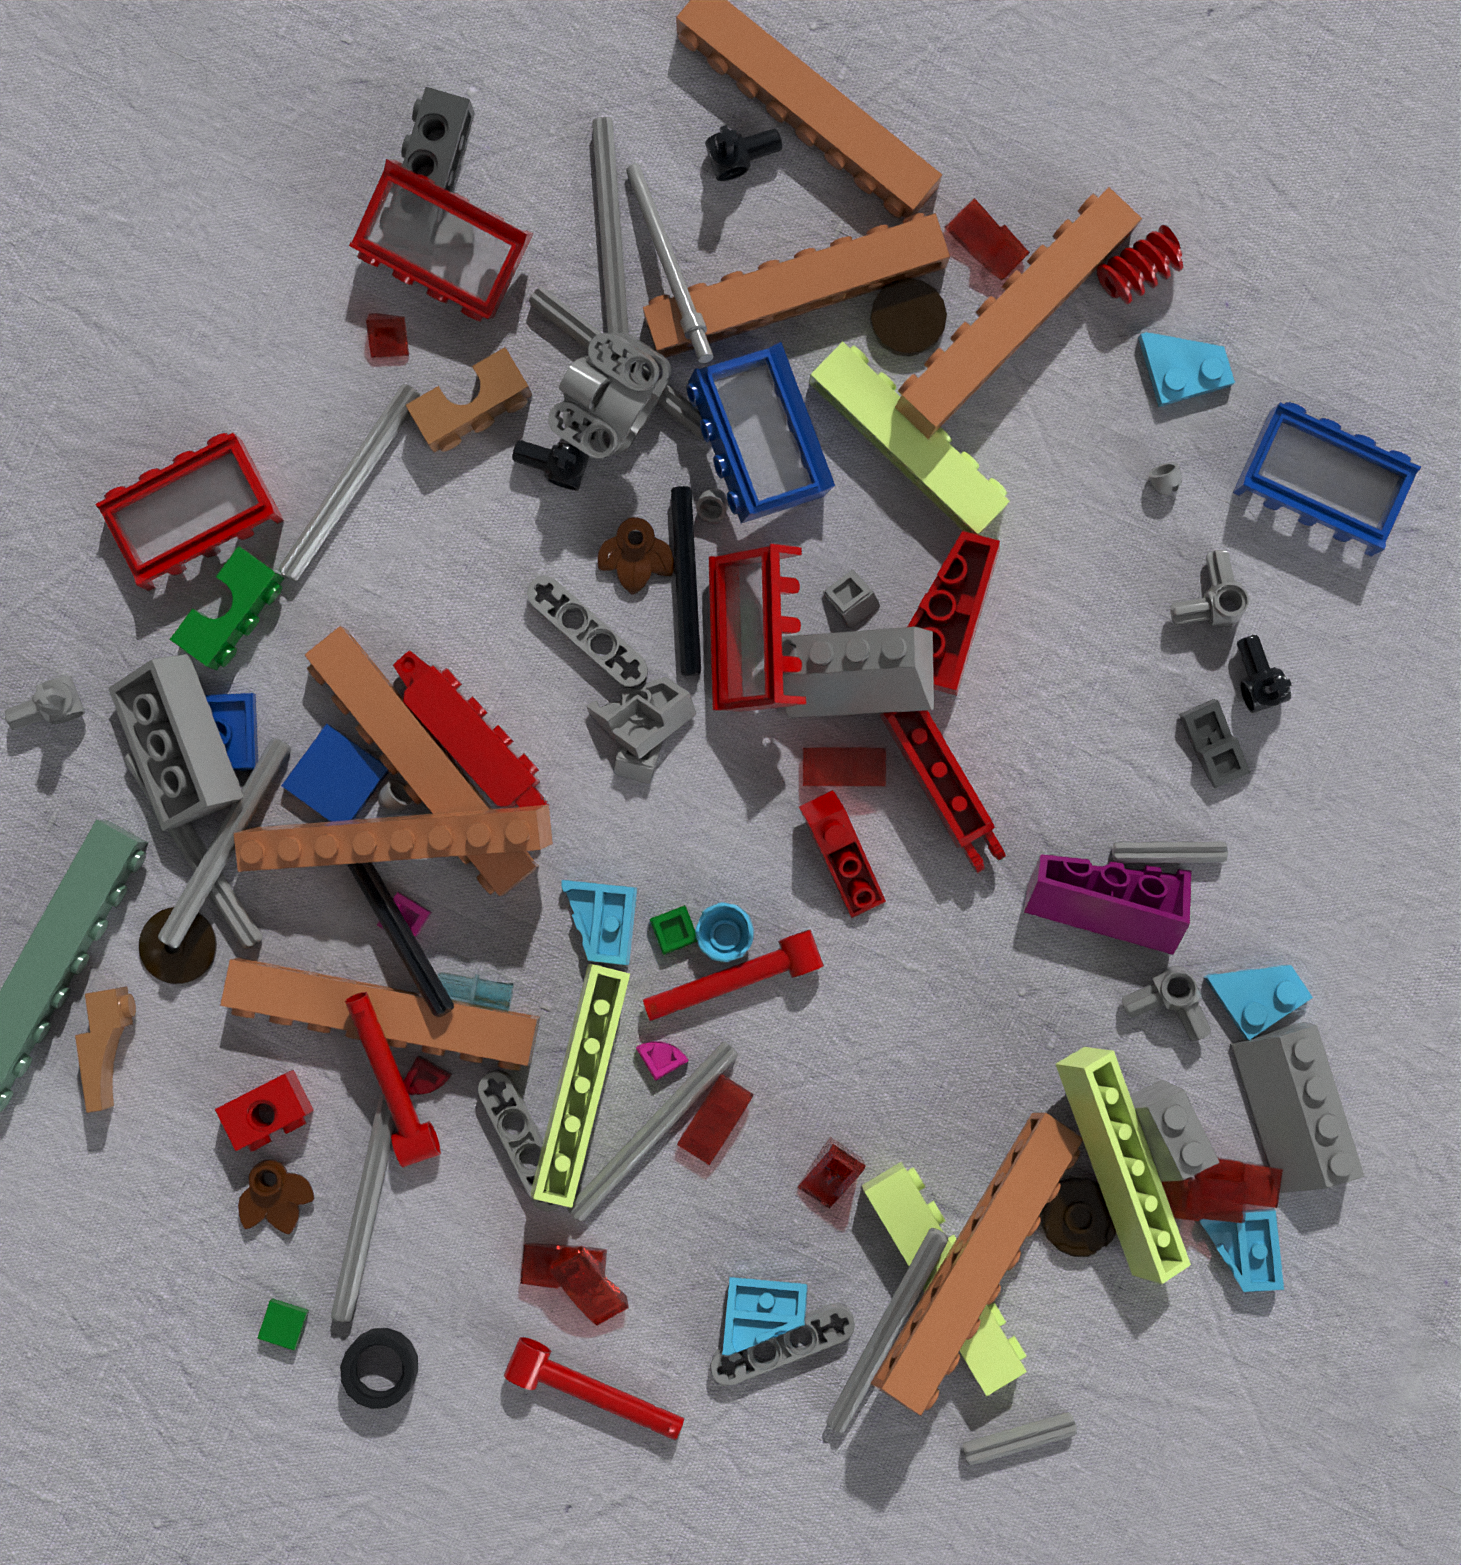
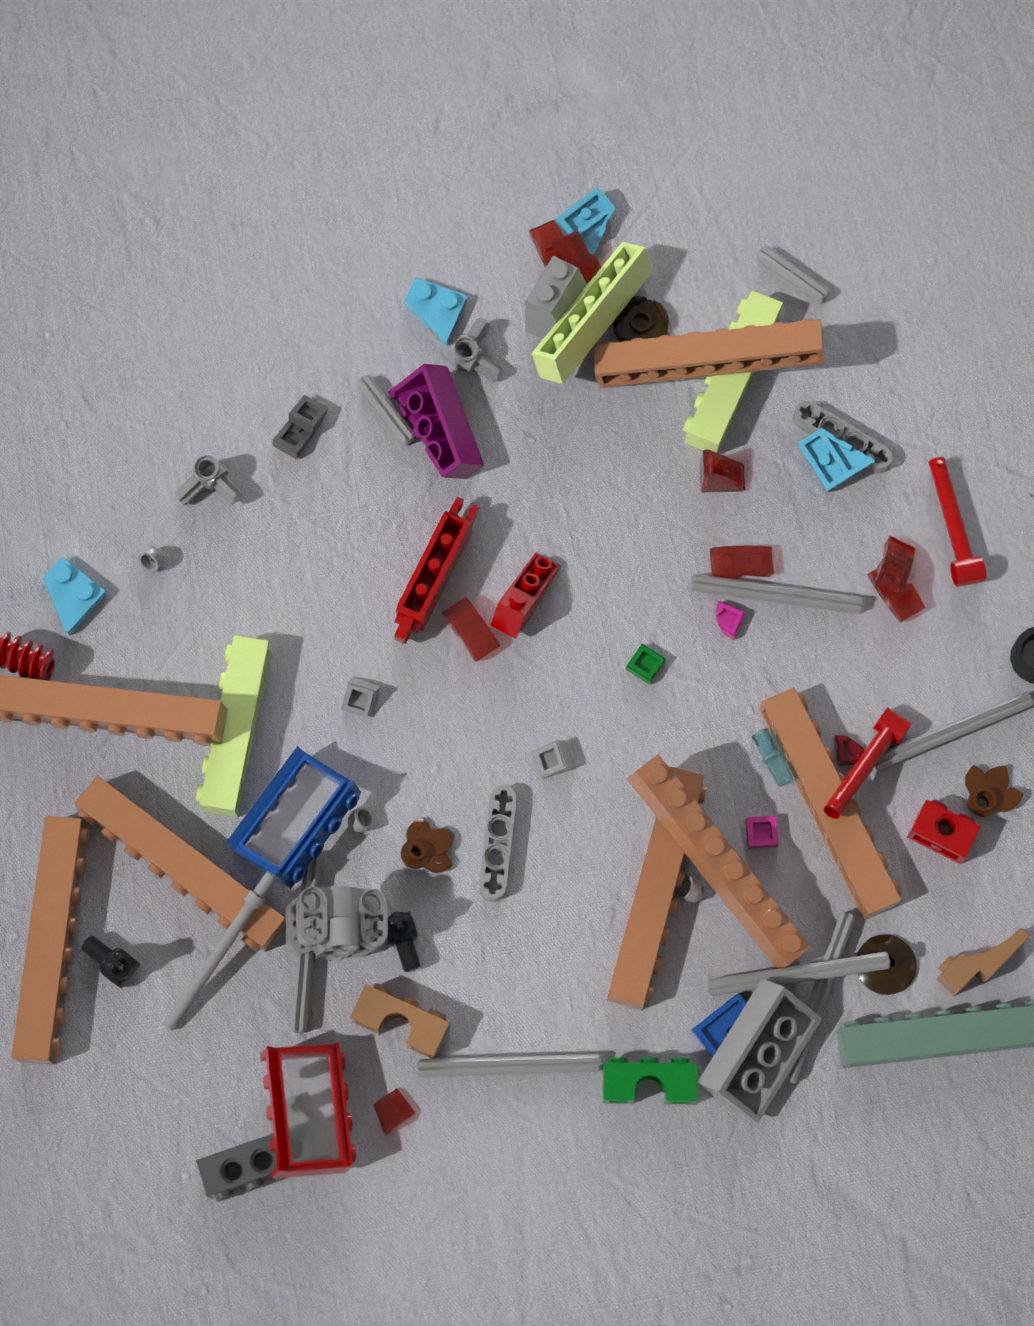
camera: 125 degrees left, 15 degrees down
(53, 701) = (791, 1154): light grey axle -> none
(188, 509) = (603, 1156): window -> none
(335, 776) = (705, 938): blue tile -> none
(402, 938) = (776, 814): black axle -> none
(466, 735) = (619, 868): red hinge -> none
(517, 1142) = (839, 665): light grey beam -> none
(579, 1085) = (781, 647): yellowish green brick -> none
(604, 918) = (671, 709): medium azure wing -> none
(610, 225) = (220, 1012): light grey axle -> none
(645, 715) = (526, 770): light grey slope -> none
(686, 580) = (421, 804): black axle -> none
(724, 932) = (625, 628): medium azure hair -> none
(750, 628) = (425, 734): red window -> none
(797, 955) = (607, 579): red piece -> none
(861, 672) = (409, 654): light grey slope -> none
(887, 1330) = (788, 380): light grey axle -> none
(908, 317) = (152, 781): dark brown tile -> none
(955, 606) = (334, 625): red wedge -> none
(986, 240) = (67, 767): clear red slope -> none
(1263, 685) = (244, 421): black axle -> none
(1297, 1108) = (486, 245): light grey slope -> none
(1328, 476) = (87, 465): window -> none

